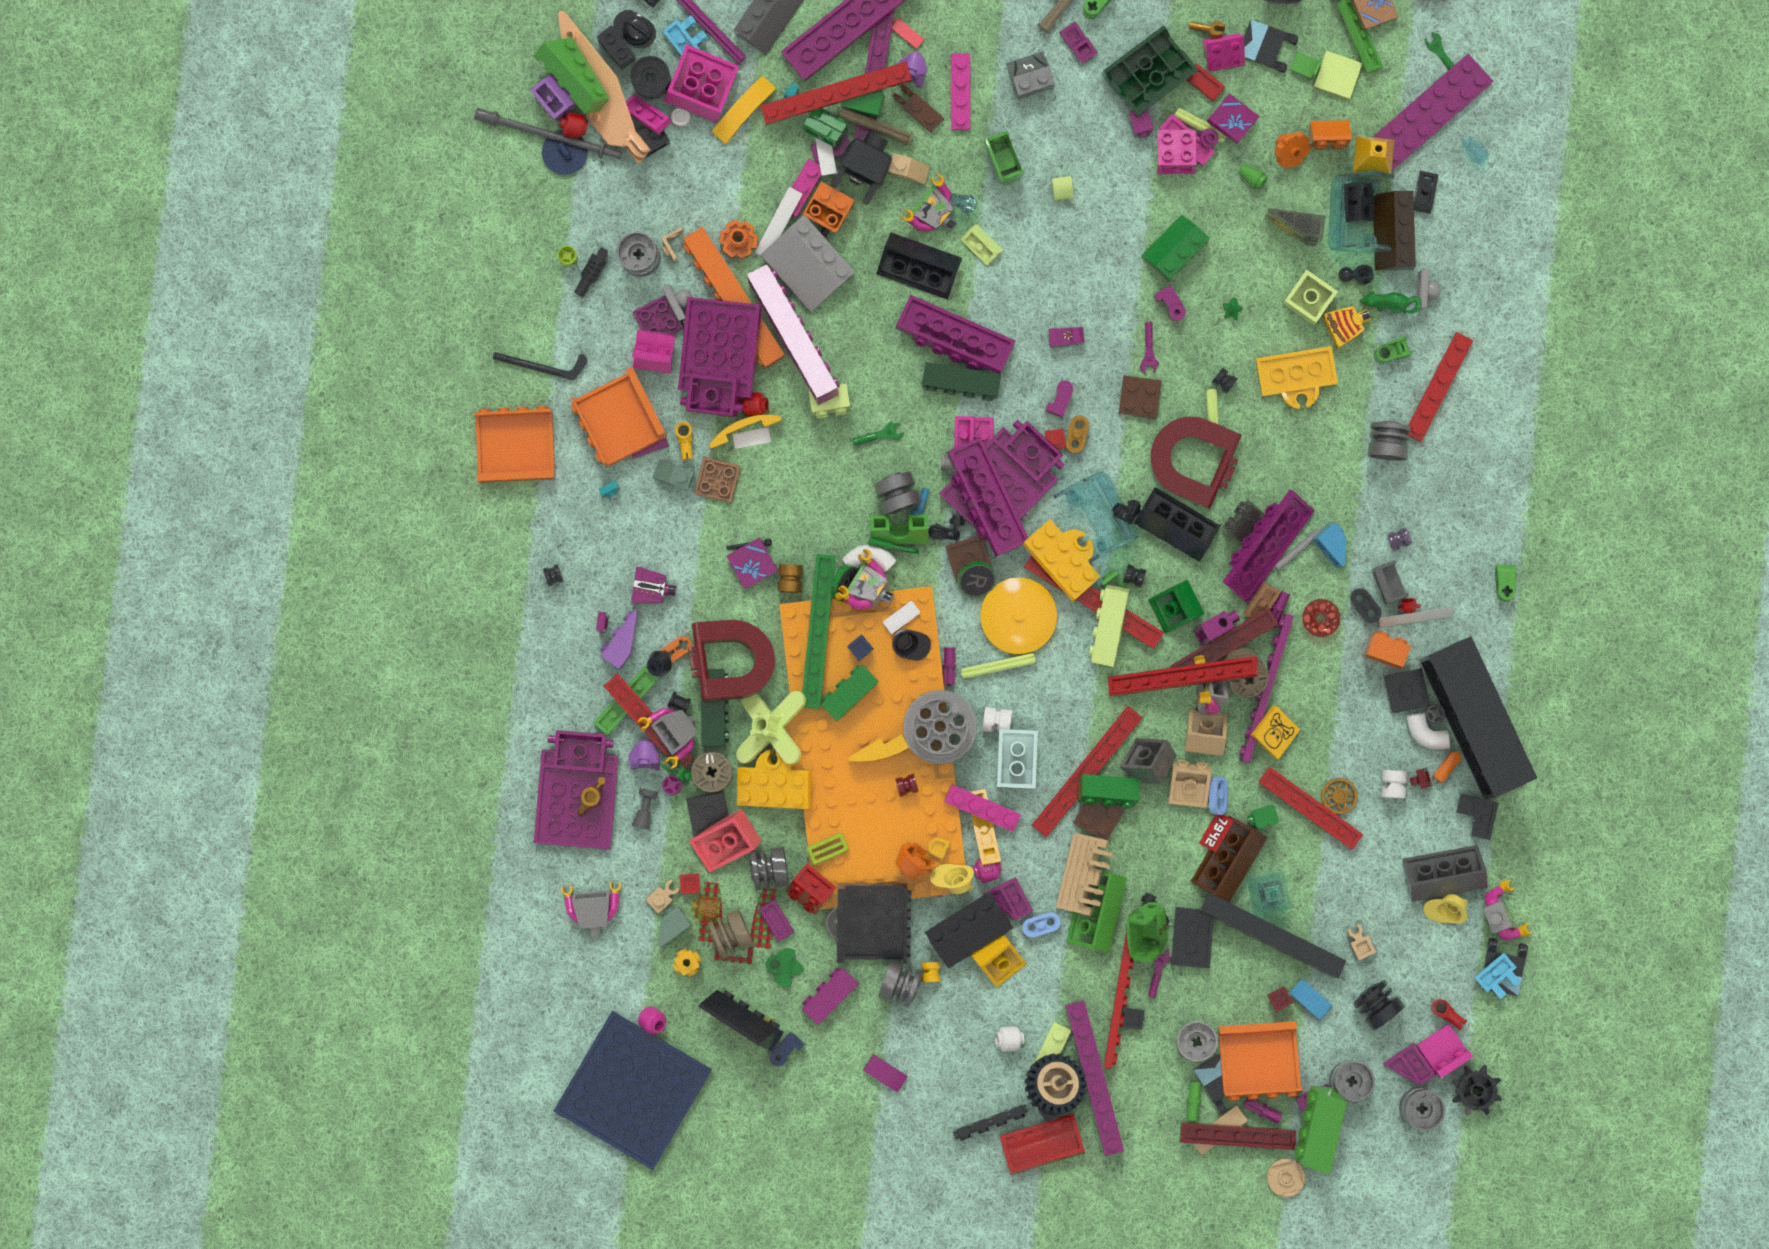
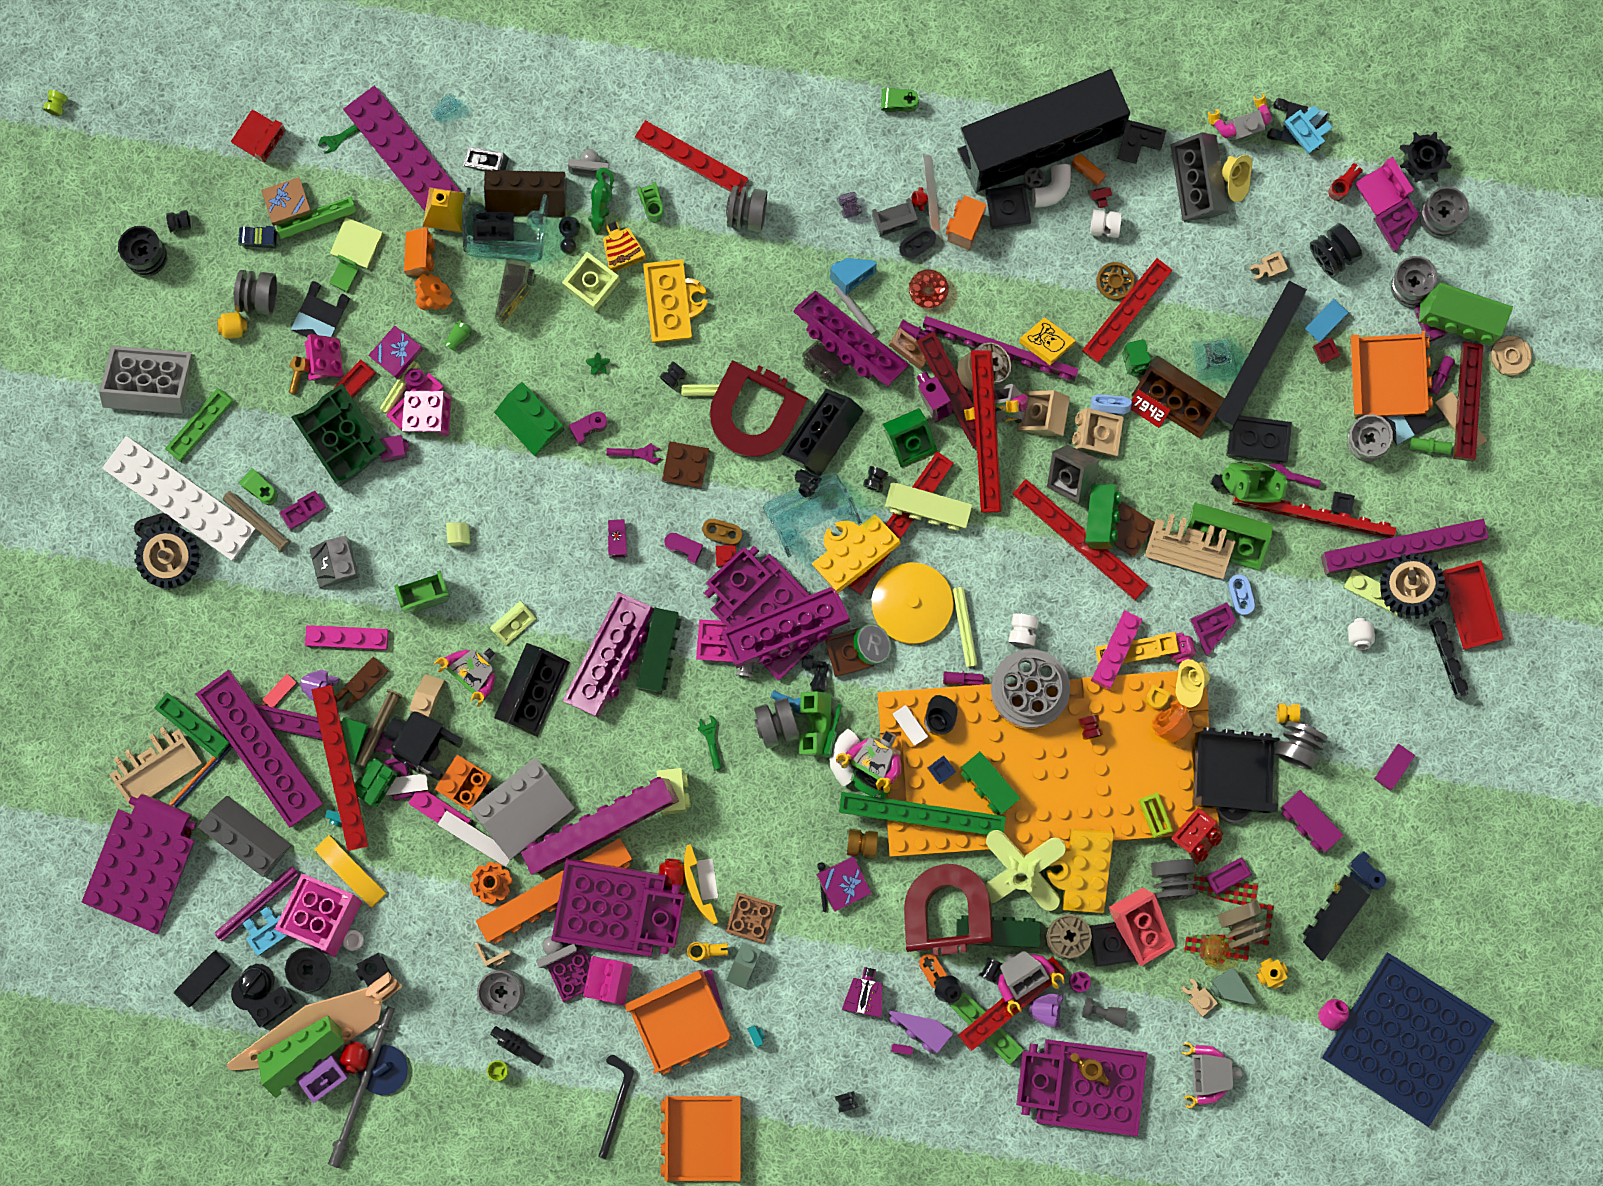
camera: 90 degrees left, 5 degrees down
(647, 114) = (349, 974): dark pink plate -> none
(681, 773) = (1069, 970): green piece -> none
(690, 883) = (1186, 967): red plate -> none
(787, 967) = (1280, 867): green plate -> none
(879, 750) = (1052, 754): yellow slope -> none
(965, 203) = (466, 638): clear light blue cone -> none
(969, 929) = (1246, 669): black slope -> none
(999, 960) = (1275, 641): yellow slope -> none
(1017, 759) = (1066, 610): light aqua slope -> none
(1111, 578) = (877, 505): bright green bracket -> none

